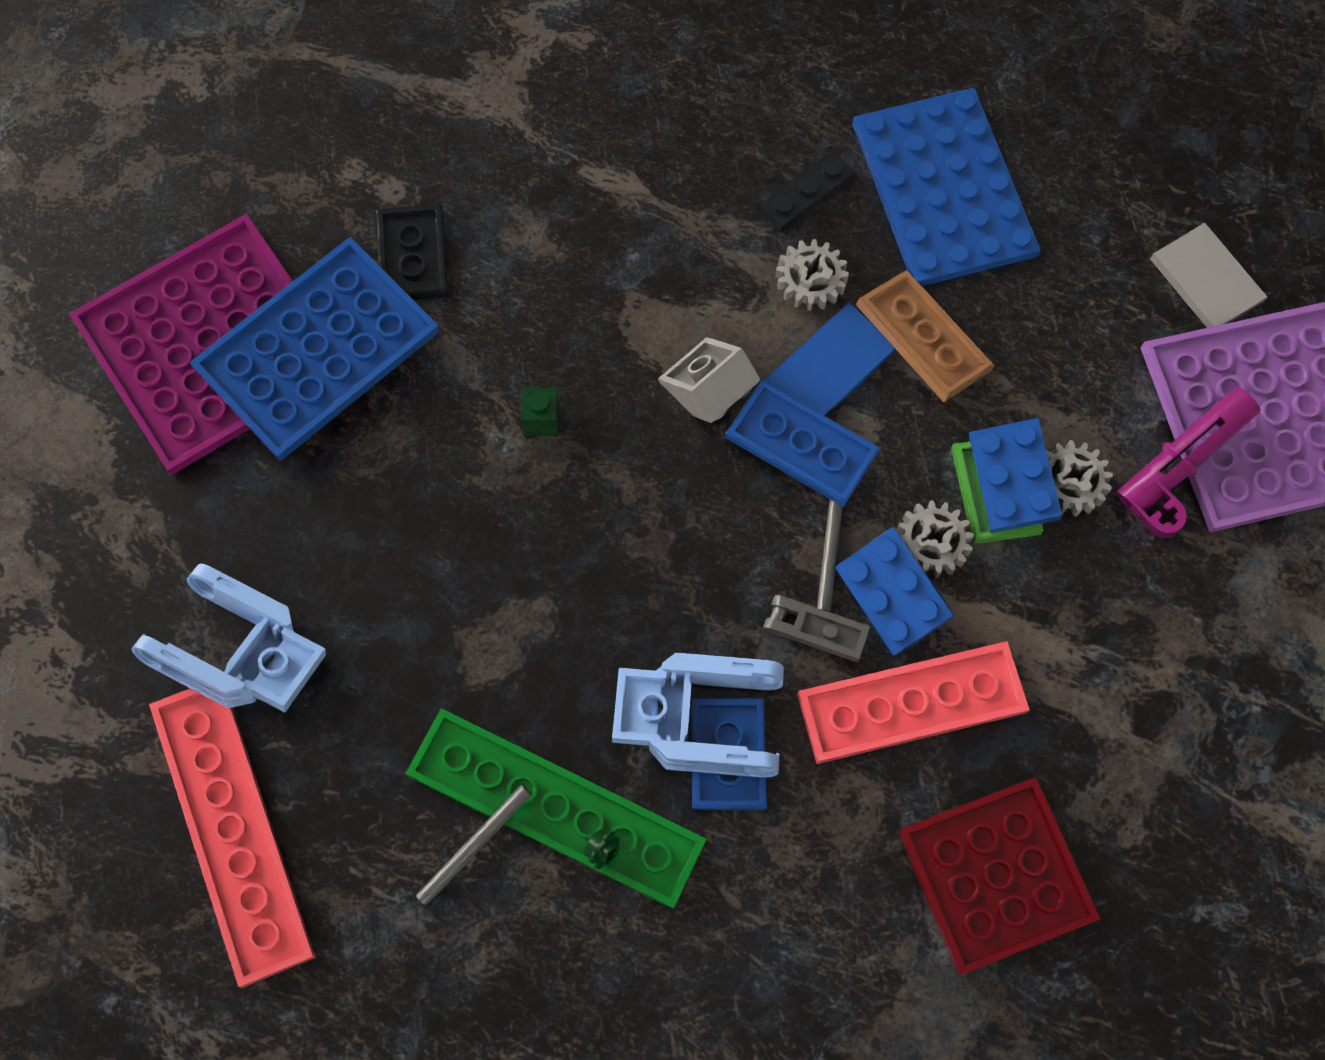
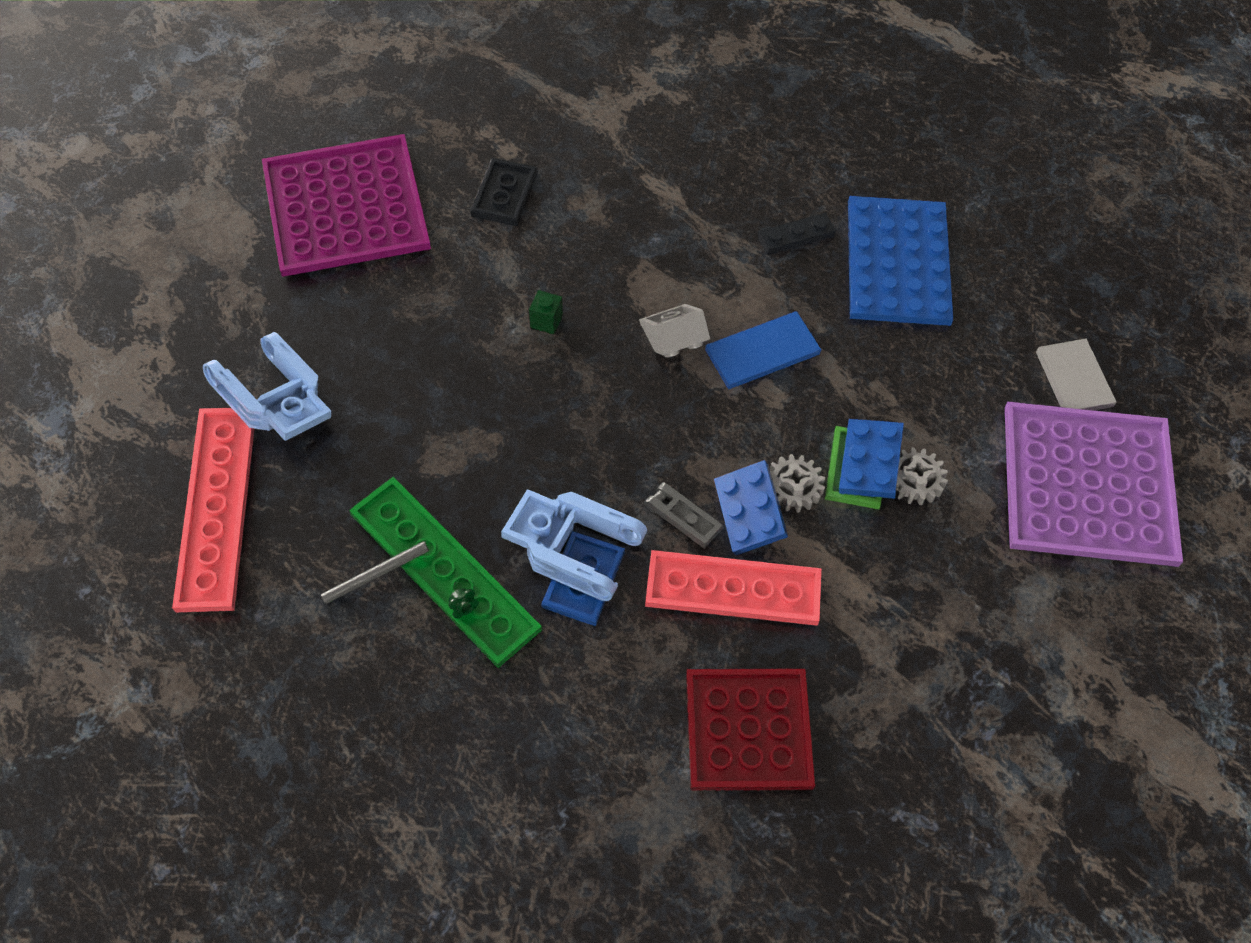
camera: 20 degrees right, 10 degrees down
(315, 348) = (411, 224): blue plate -> none
(801, 265) = (776, 285): light grey gear -> none
(802, 443) = (724, 389): blue tile -> none
(829, 556) = (718, 463): dark grey bar -> none
(925, 335) = (844, 349): medium nougat tile -> none
(1151, 485) = (1002, 487): magenta piece -> none

